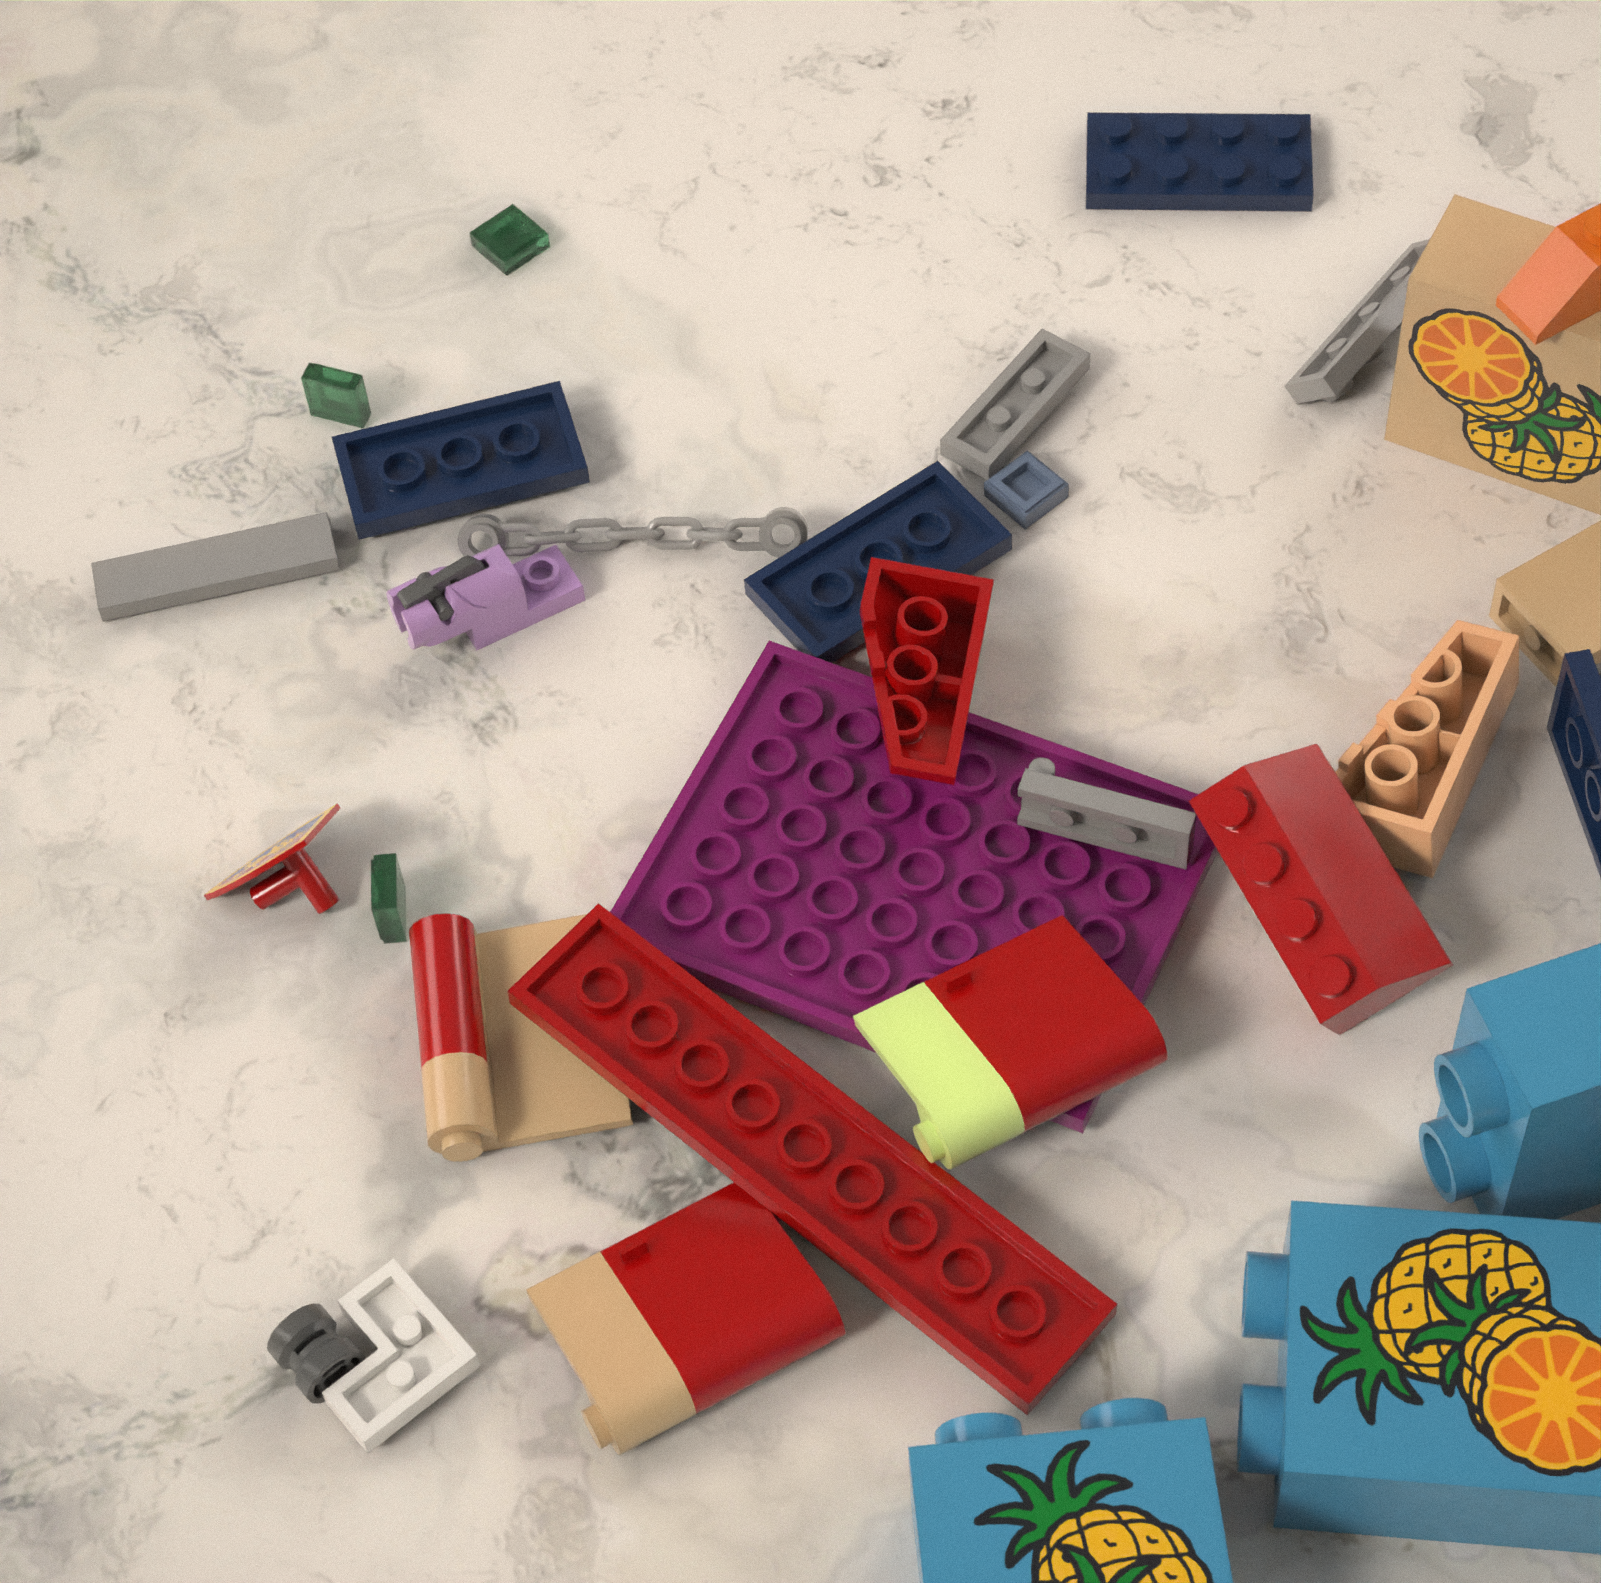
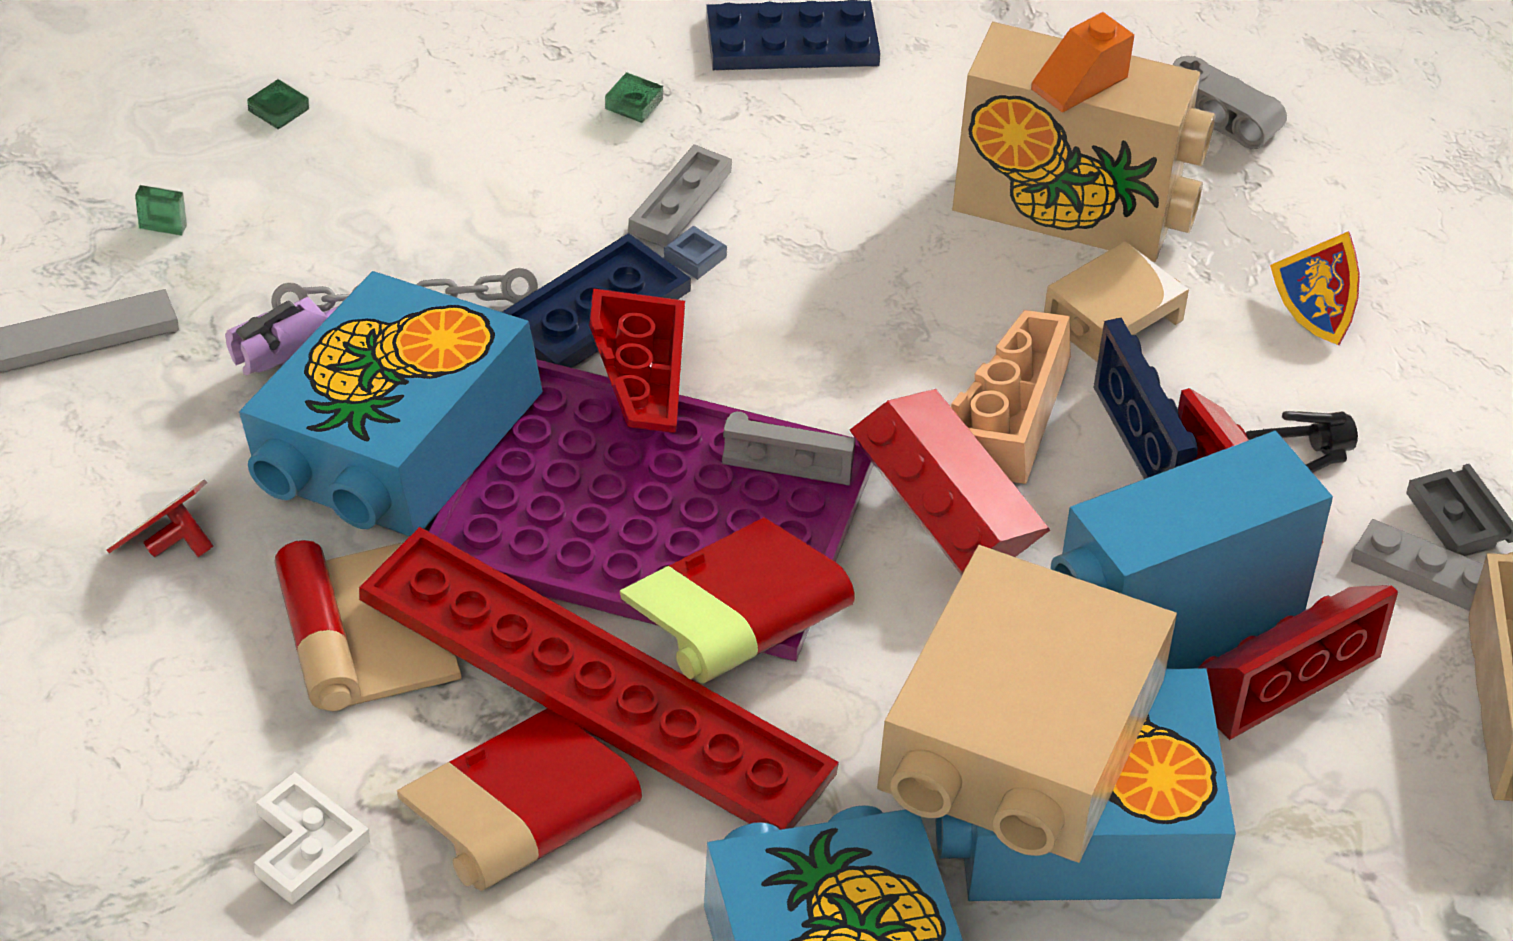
camera: 15 degrees left, 10 degrees down
(313, 1350) = (241, 836): dark grey wheel -> none
(388, 898) = (254, 539): clear green tile -> none
(460, 459) = (263, 249): dark blue plate -> none
(583, 718) = (391, 404): none -> dark azure brick
(973, 251) = (634, 97): none -> clear green plate
(1358, 337) = (926, 141): light grey plate -> none
(1369, 1288) = (1025, 704): none -> tan brick

